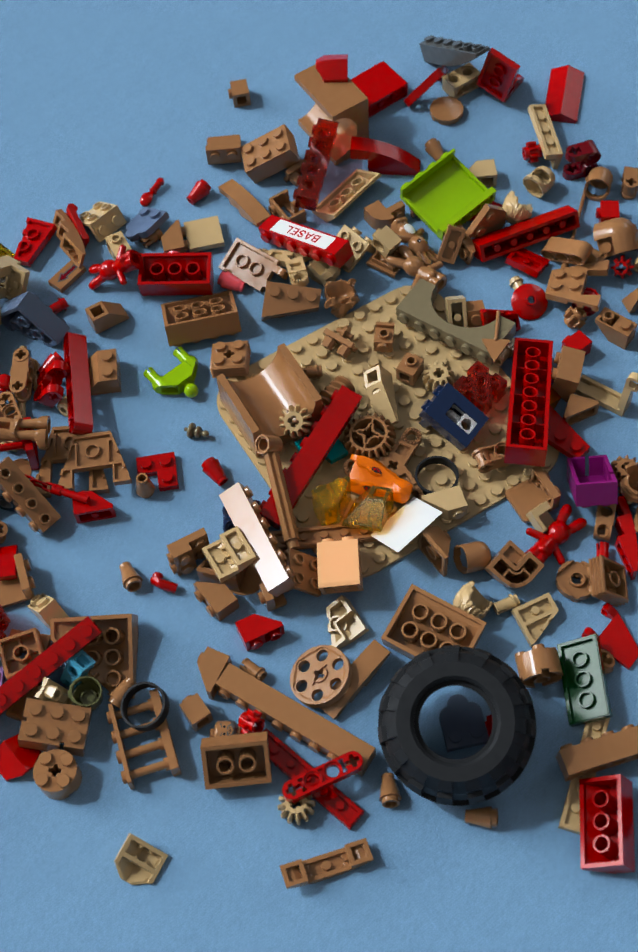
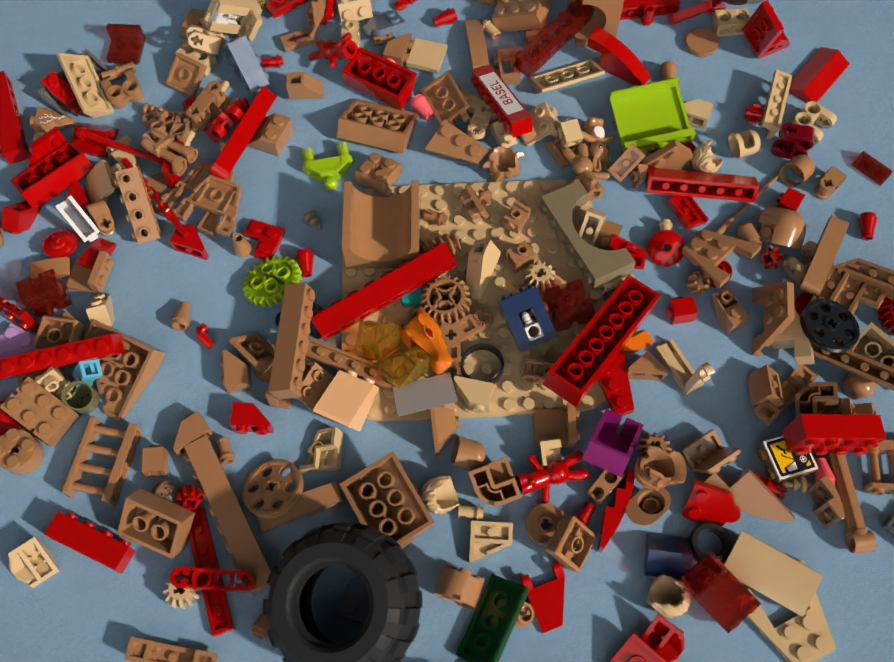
camera: 25 degrees right, 5 degrees up
(118, 693) = (107, 414): medium nougat cone -> none
(130, 693) = (102, 424): black tyre -> none
(183, 812) = (90, 542): none -> red brick
(185, 552) = (232, 320): medium nougat plate -> none
(196, 501) = (269, 279): none -> lime gear
(229, 554) = (259, 341): tan slope -> none
(248, 183) = (488, 26): none -> tan pin
(270, 448) = (349, 266): medium nougat piece -> none
(299, 414) = (388, 253): tan gear -> none
(378, 216) = (583, 109): medium nougat brick -> none
(384, 110) = (647, 17): none -> red pin
(496, 346) = (604, 274): medium nougat piece -> none
(567, 250) = (728, 218): medium nougat beam -> none
(567, 371) = (656, 329): medium nougat slope -> none
(583, 128) = (815, 113): none -> tan piece

